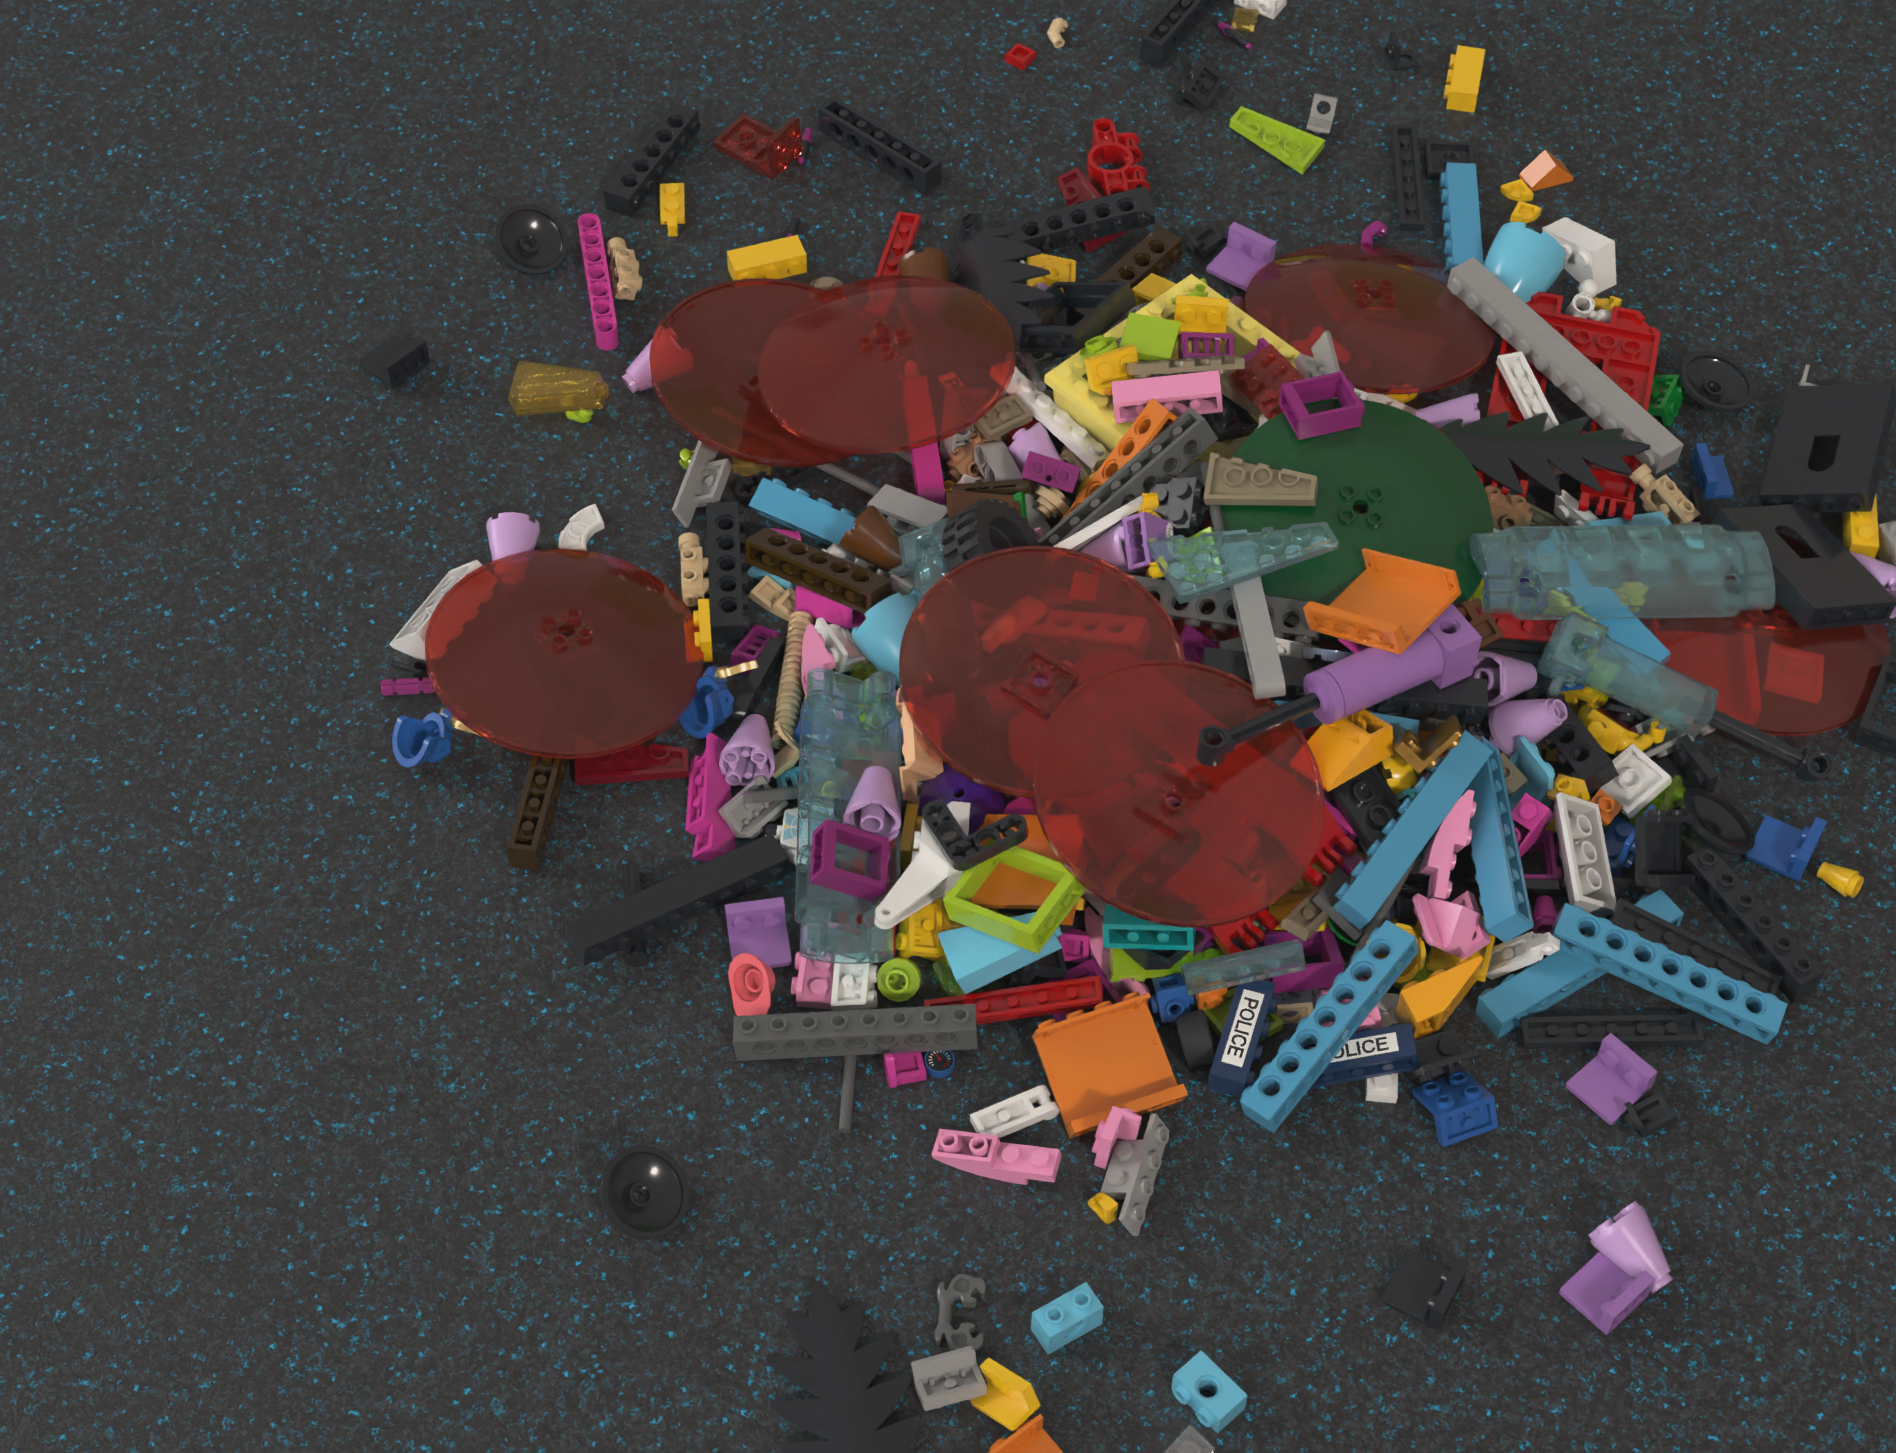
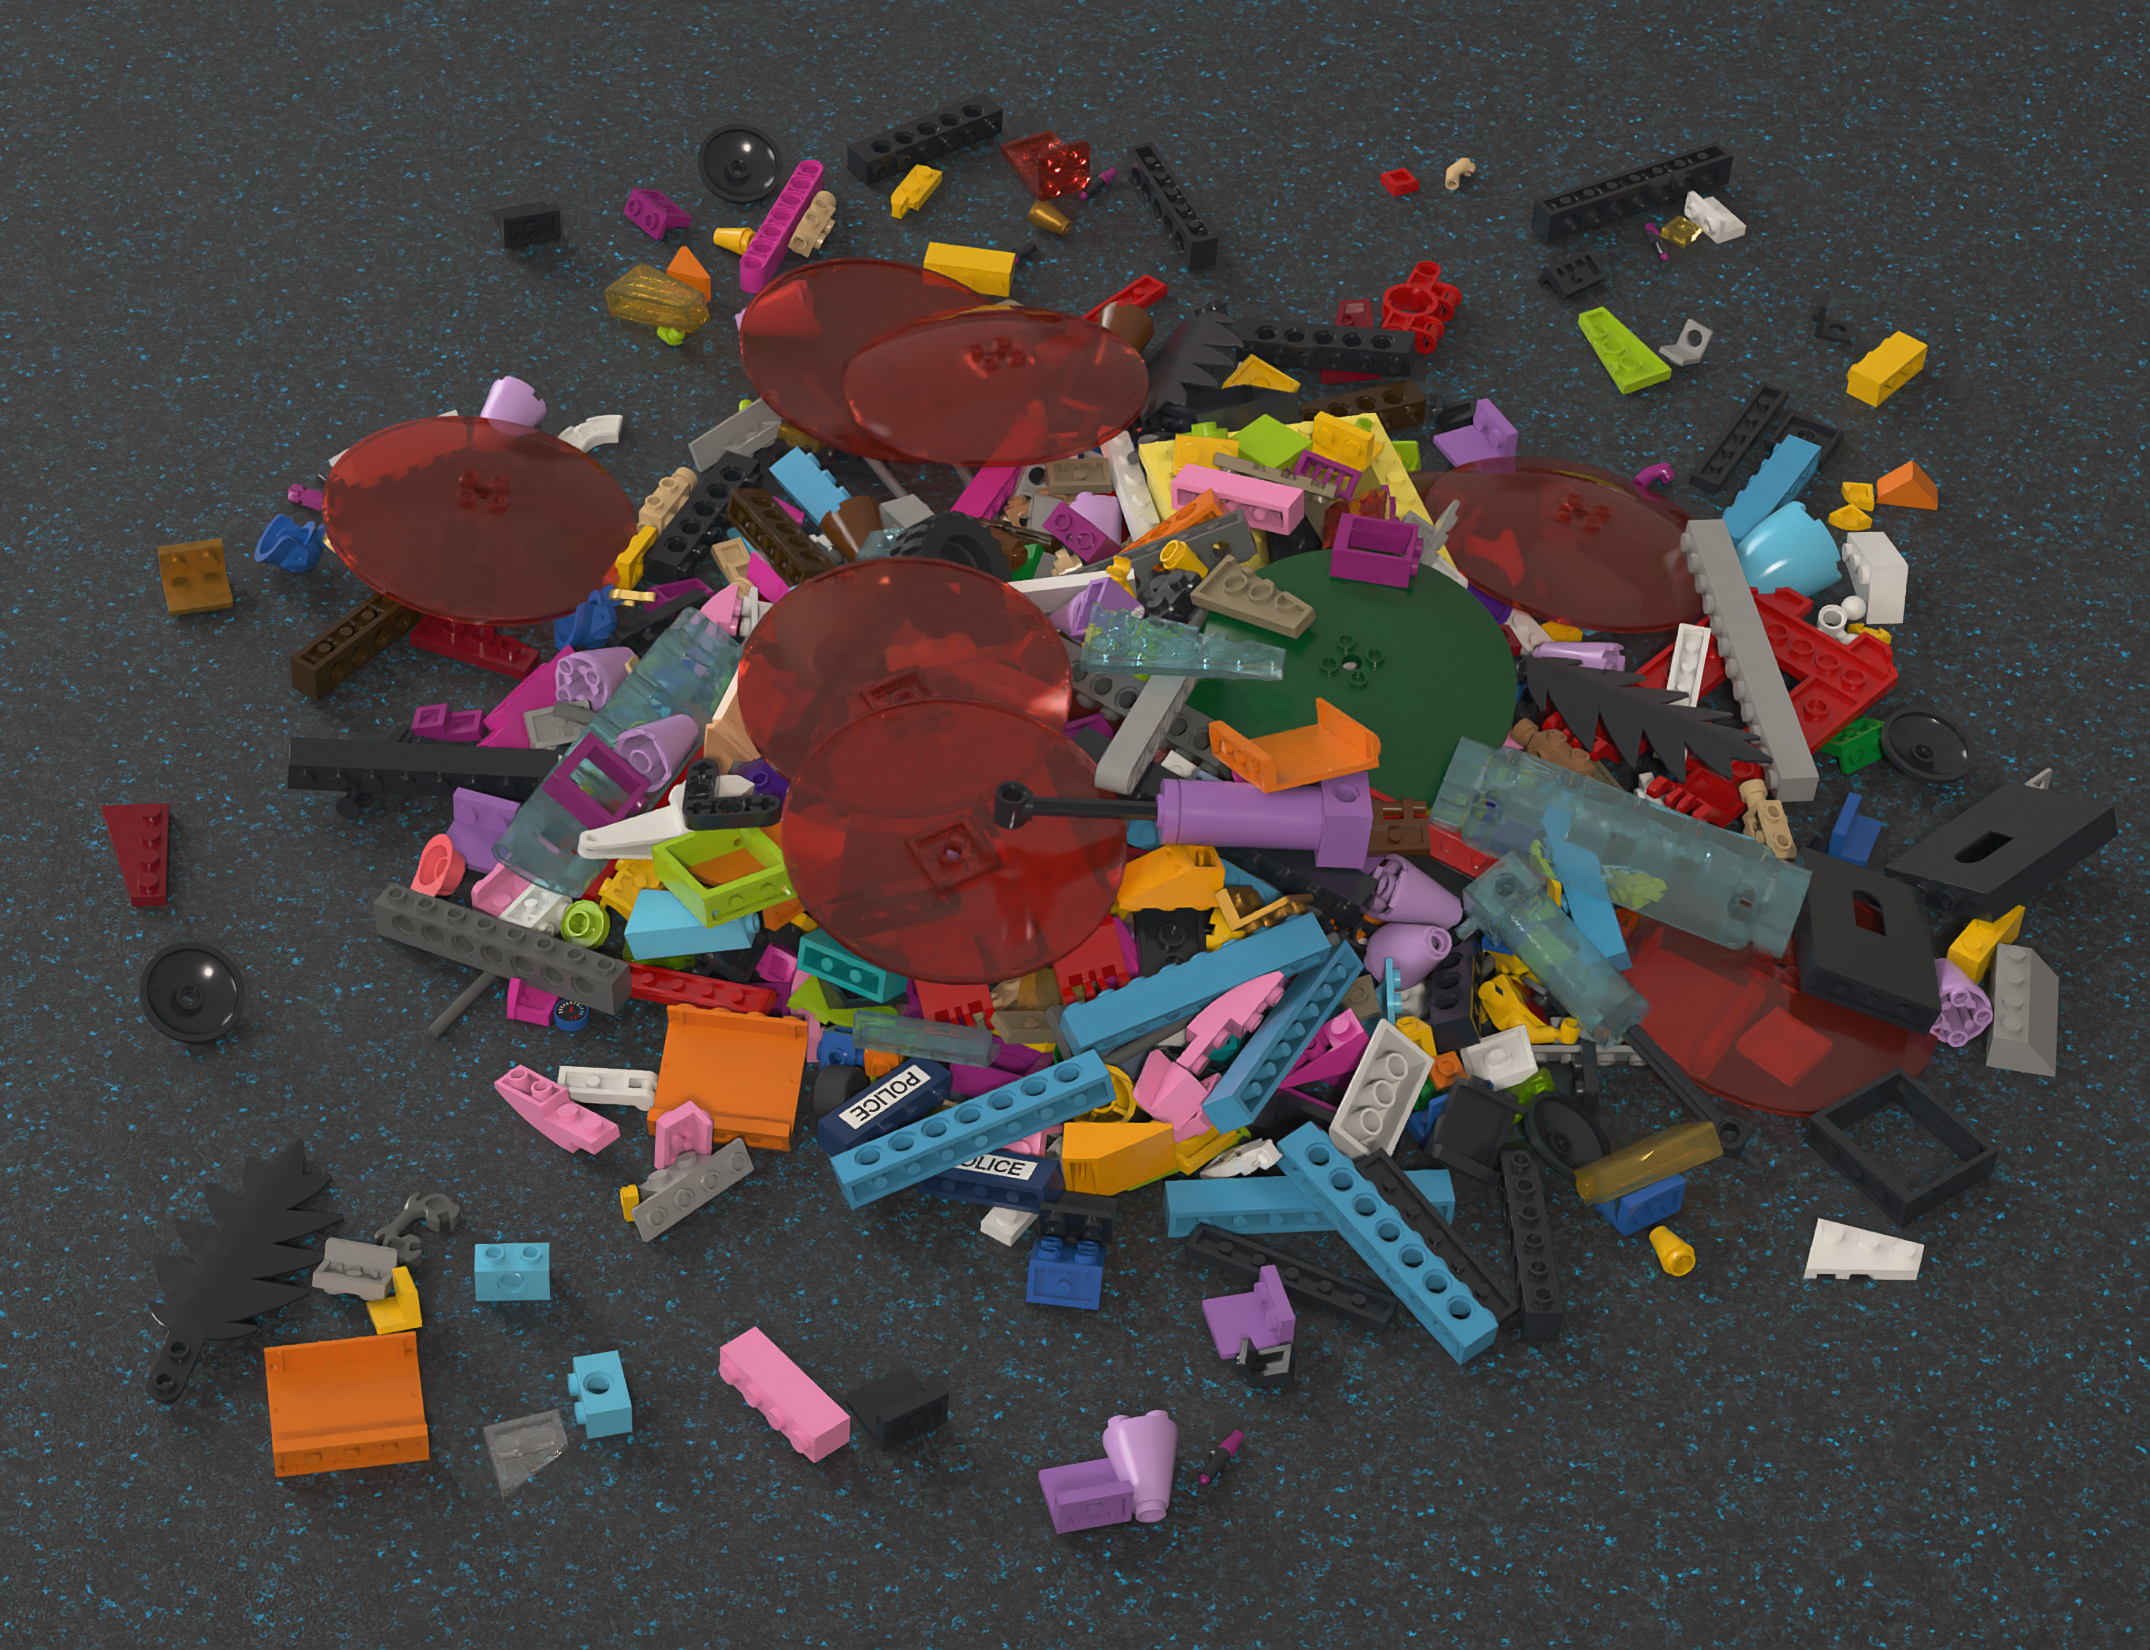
camera: 25 degrees right, 10 degrees down
(365, 805) = (194, 577): none -> pearl gold bracket
(489, 309) = (655, 212): none -> magenta bracket
(497, 1074) = (141, 849): none -> dark red wing
(560, 353) = (689, 271): none -> orange slope
(572, 307) = (734, 238): none -> yellow cone
(652, 847) = (441, 724): none -> magenta slope
(793, 192) = (1049, 218): none -> pearl gold cone
(1167, 467) = (1180, 556): none -> yellow cone
(1342, 1322) = (784, 1395): none -> bright pink brick
(1668, 1208) = (1219, 1456): none -> piece
(1789, 815) = (1648, 1161): none -> clear yellow slope

